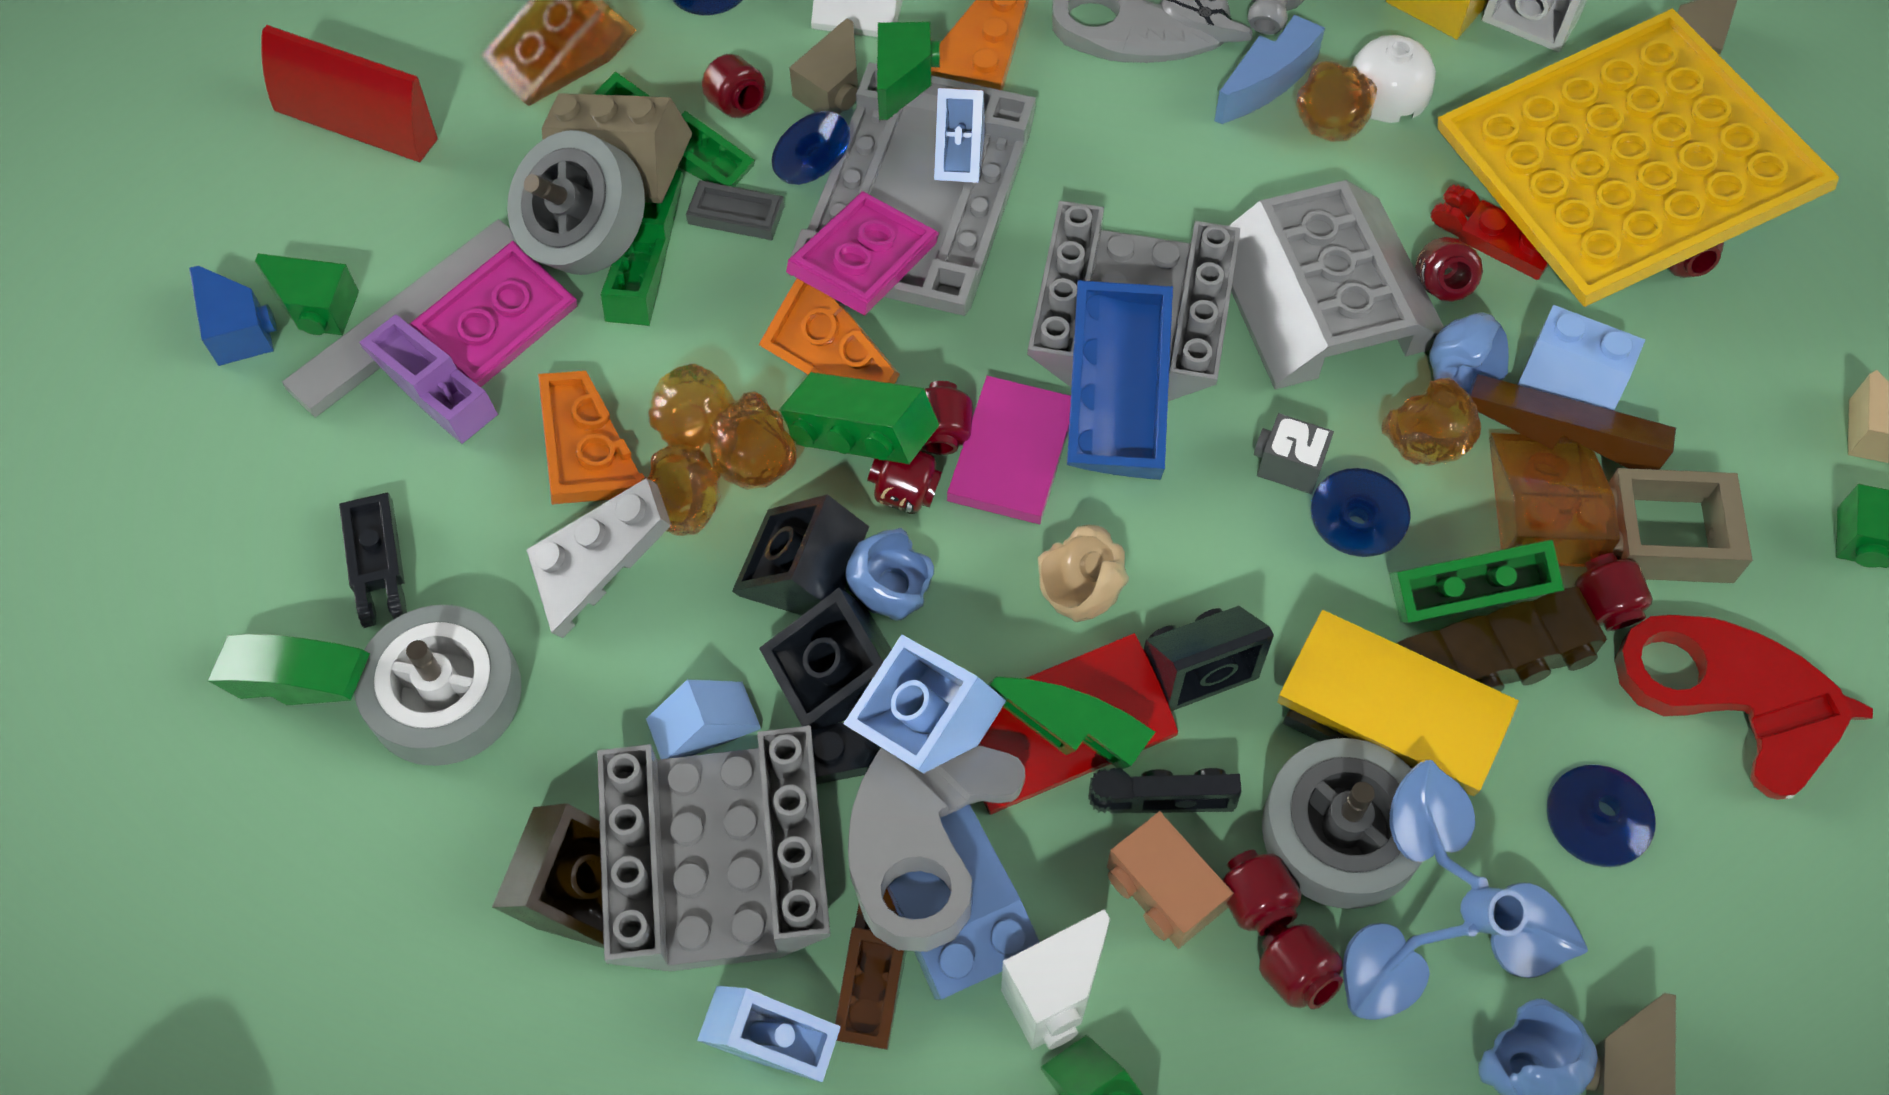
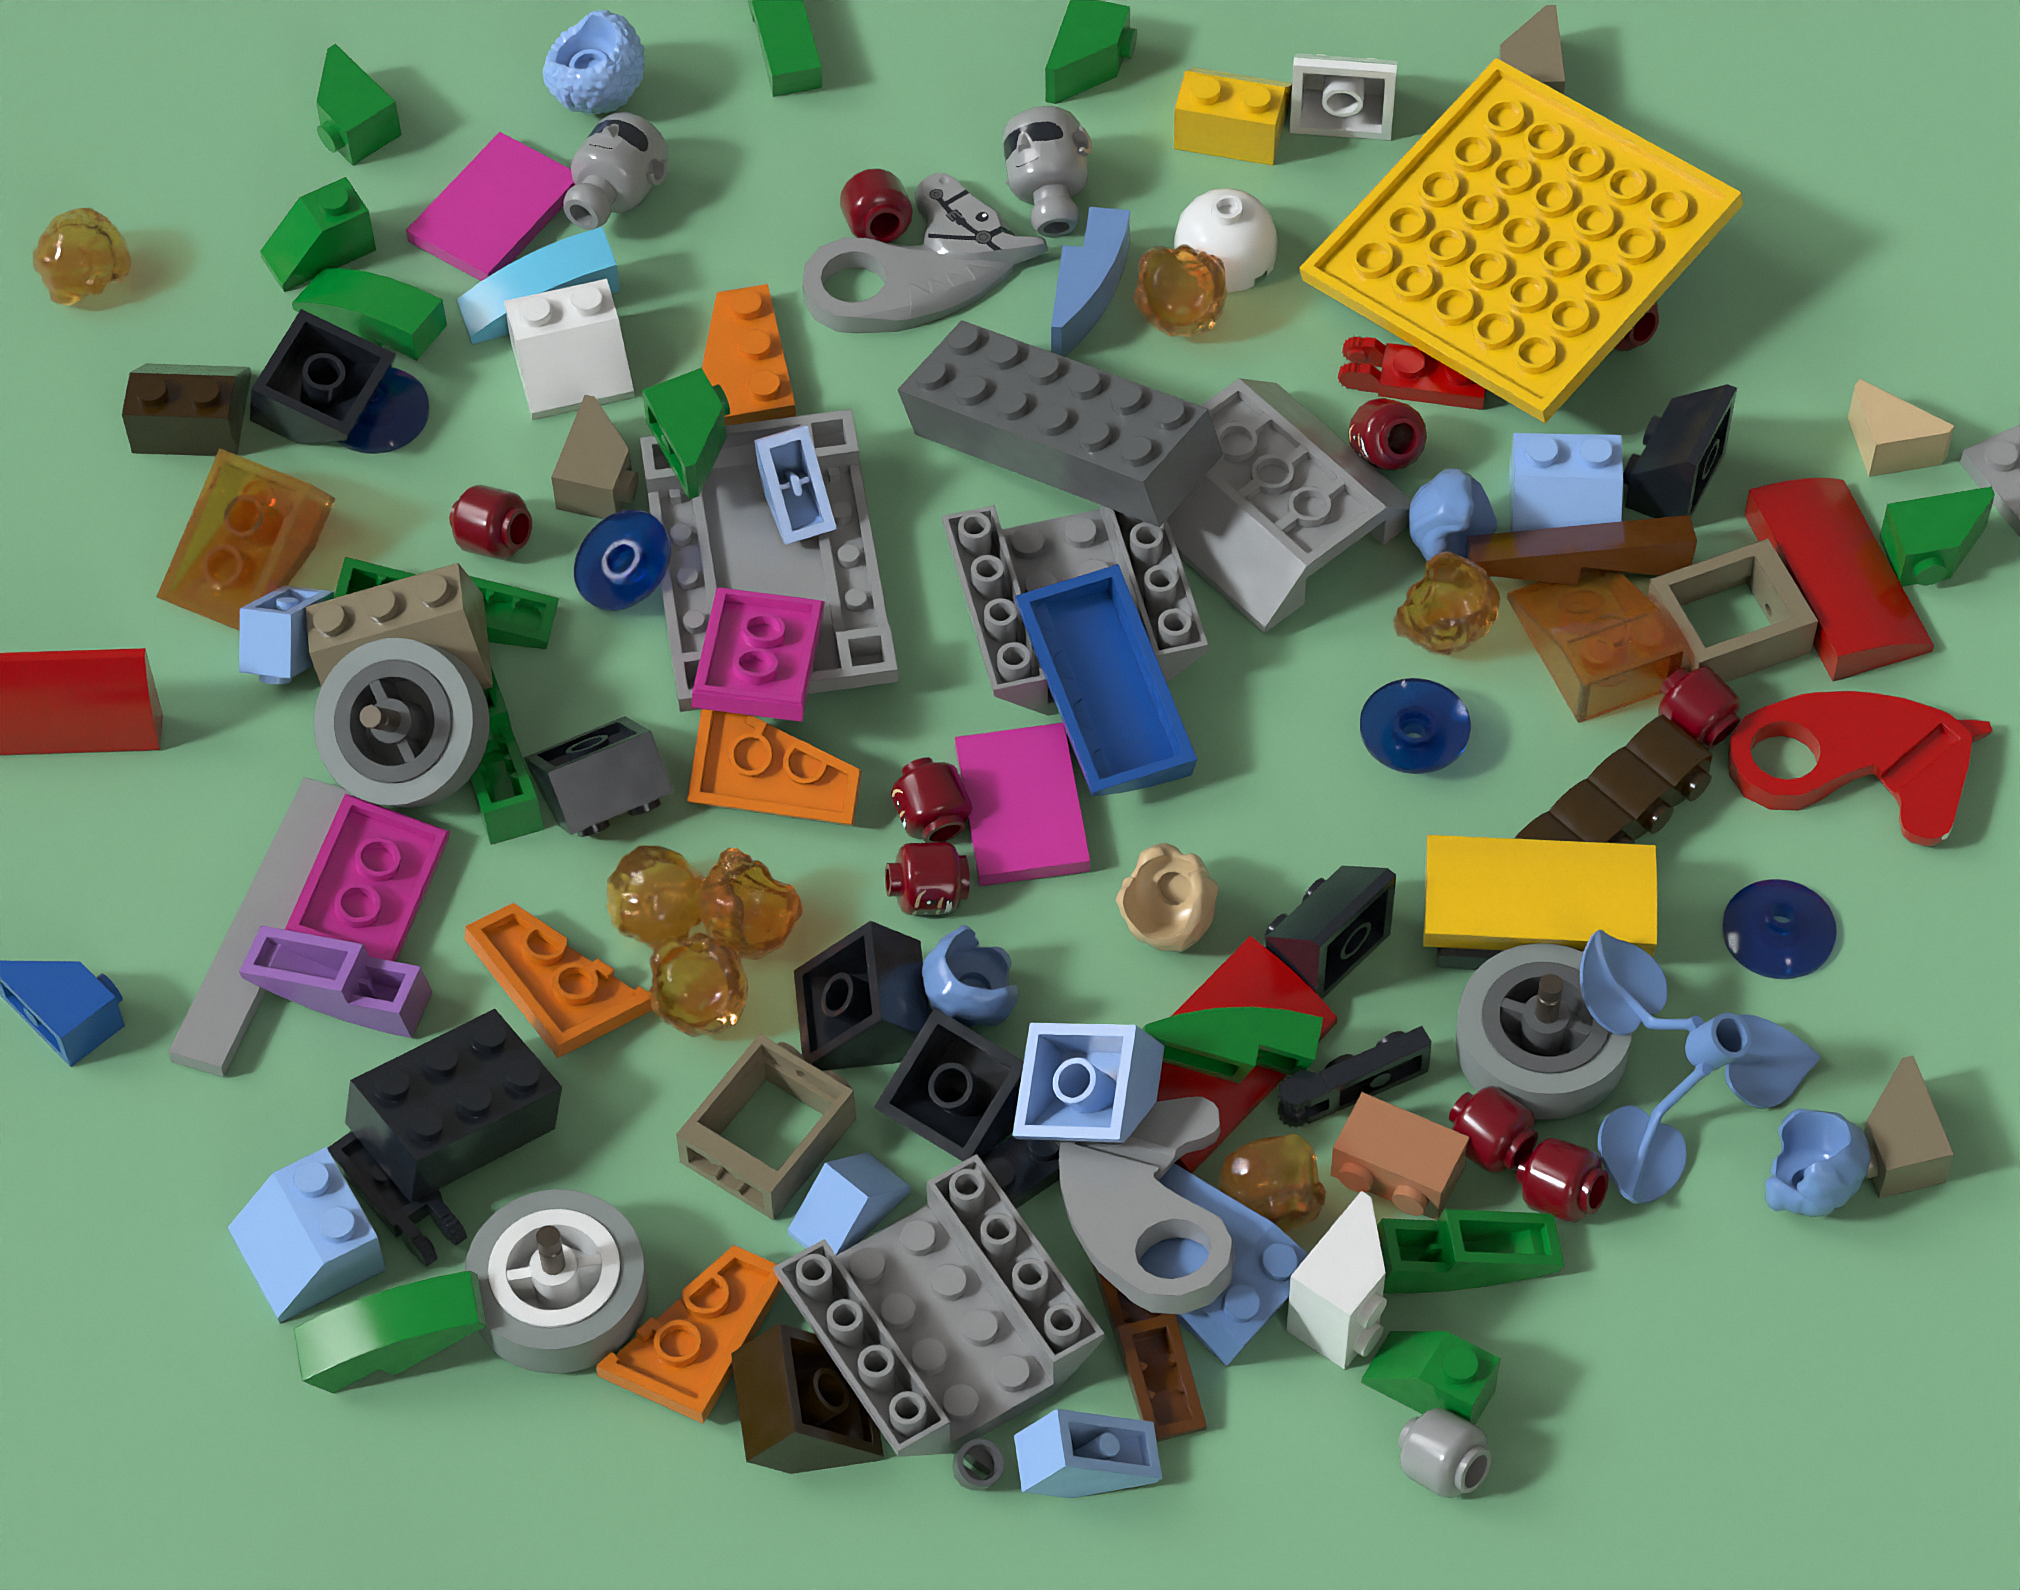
camera: 25 degrees left, 5 degrees down
(290, 566) = (306, 1236): none -> light blue slope
(311, 291) = (133, 943): green slope -> none
(442, 508) = (452, 1105): none -> black brick
(505, 784) = (687, 1350): none -> orange wing
(528, 103) = (276, 634): none -> light blue slope
(591, 550) = (637, 1087): wing -> none
(656, 592) = (735, 1169): none -> dark tan window
(665, 1002) = (984, 1457): none -> dark grey hinge
(703, 301) = (600, 776): none -> black slope
(735, 210) = (569, 663): dark grey tile -> none
(860, 417) = (853, 830): green brick -> none
(1044, 859) = (1275, 1180): none -> clear orange hair
(1184, 991) = (1467, 1250): none -> green slope
(1190, 165) = (1061, 422): none -> dark grey brick
(1293, 452) = (1318, 692): dark grey brick -> none
(1476, 581) = (1562, 748): green brick -> none
(1691, 374) = (1680, 453): none -> black slope
(1788, 527) = (1841, 574): none -> red slope

